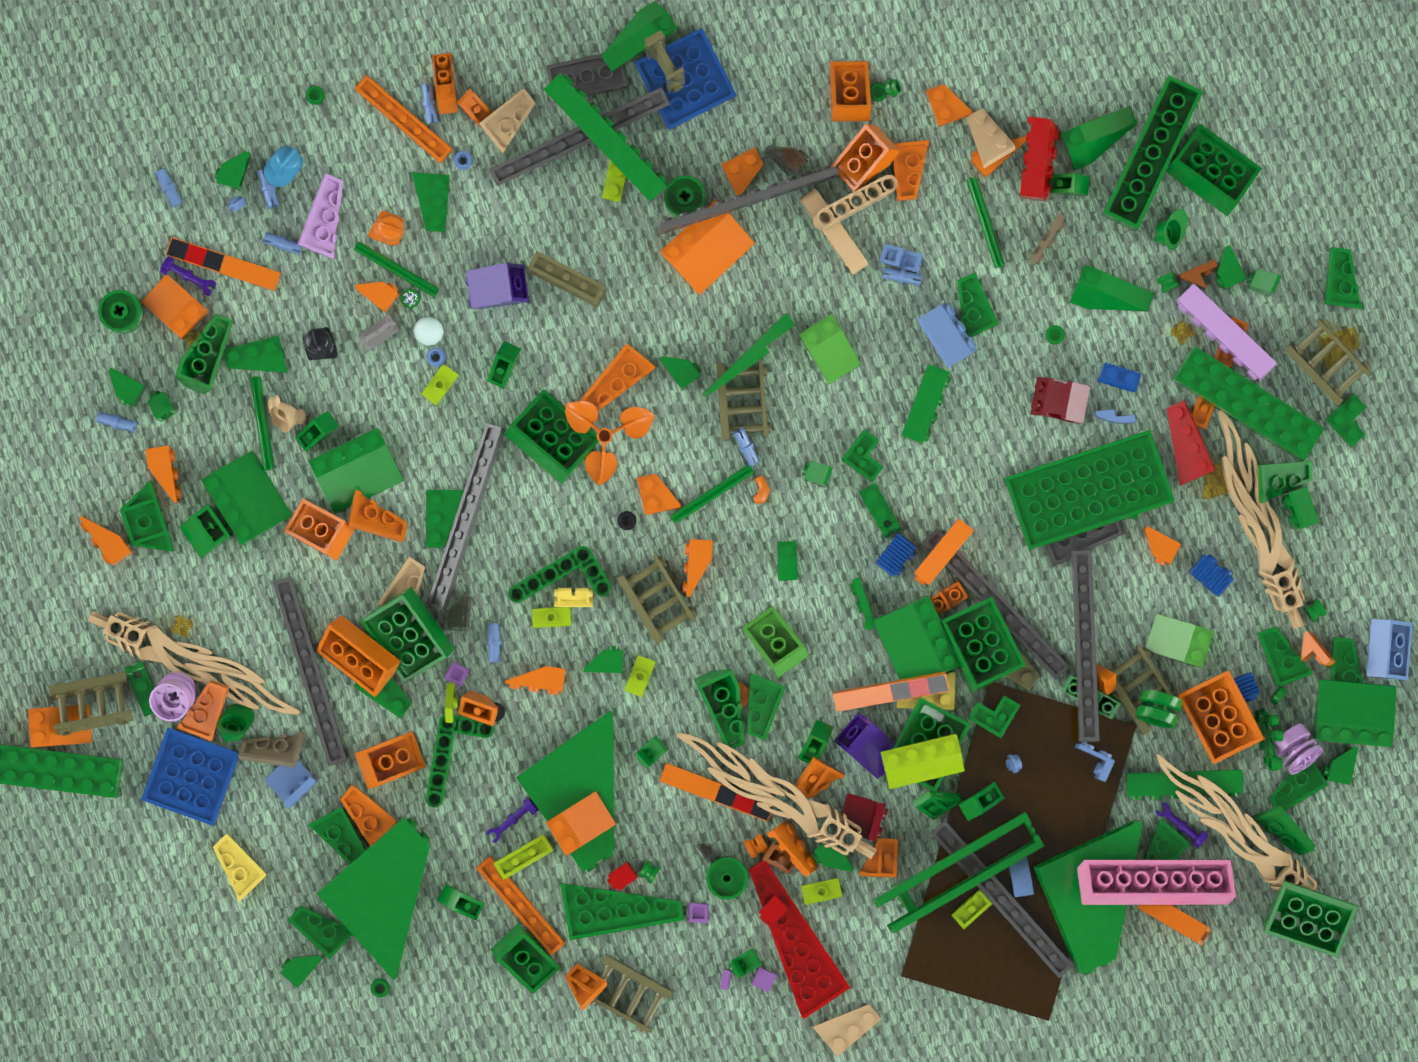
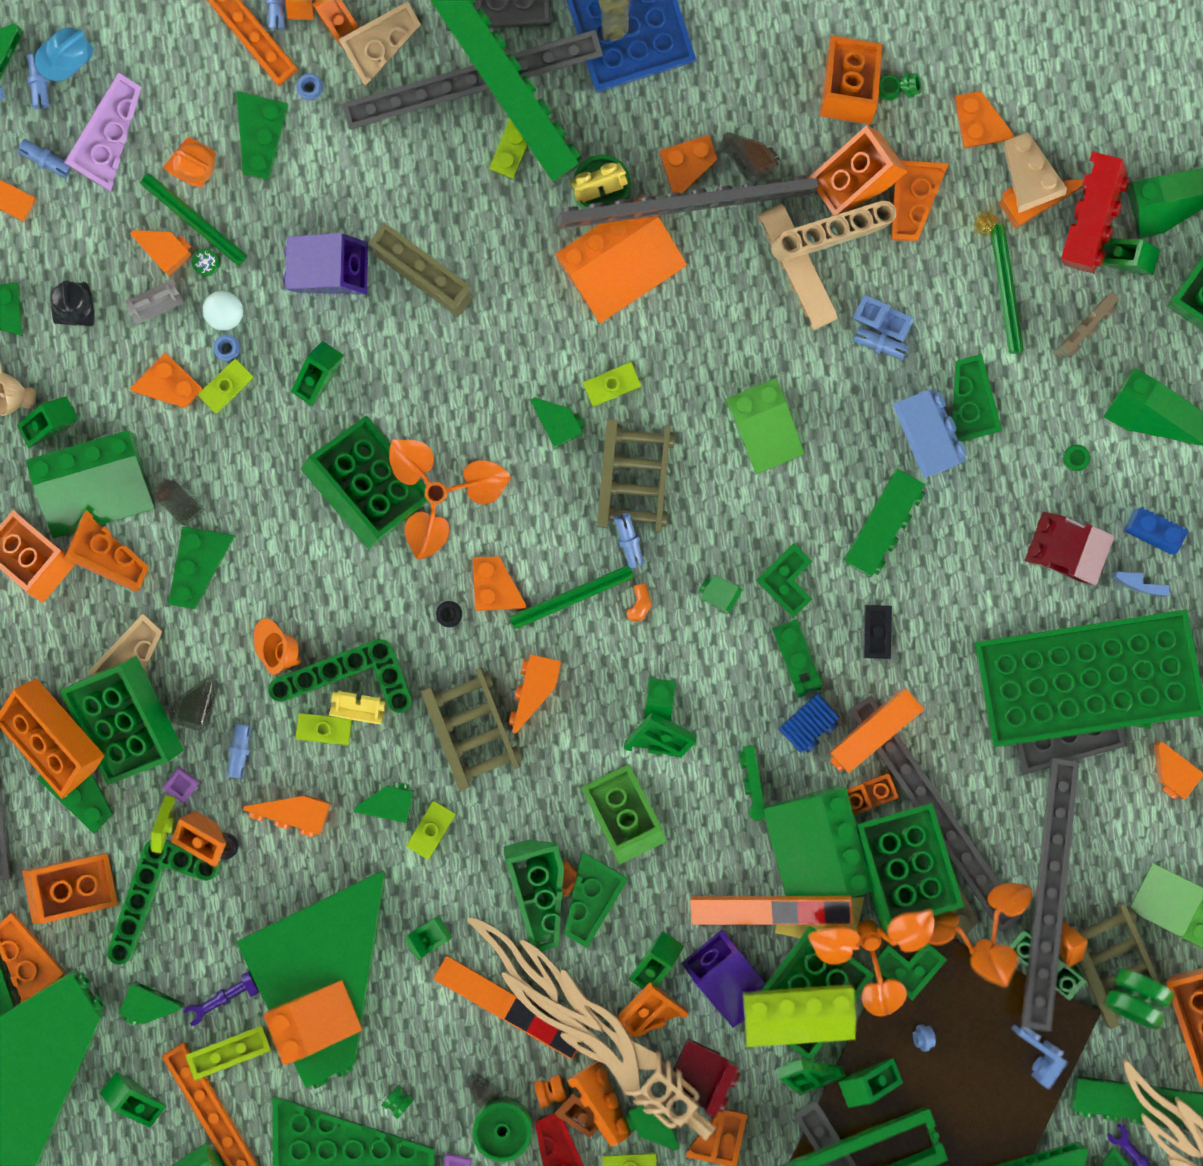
camera: 15 degrees right, 0 degrees up
(398, 389) = (168, 383): none -> orange wing
(422, 472) = (179, 501): none -> clear smoke slope
(459, 833) = (146, 1004): none -> green slope
(466, 517) = (229, 573): plate -> none
(507, 564) = (275, 648): none -> orange piece
(618, 377) = (470, 416): orange wing -> none
(621, 876) = (359, 1102): red brick -> none
(689, 191) = (609, 176): none -> light yellow hinge
(715, 337) = (612, 384): none -> lime plate
(753, 353) = (660, 414): green slope -> none
(792, 582) = (661, 737): none -> green wing
(933, 482) = (877, 631): none -> black plate
(940, 706) = (836, 946): none -> orange plant
(962, 178) = (984, 223): none -> clear yellow plate
(1050, 697) = (988, 958): none -> orange plant

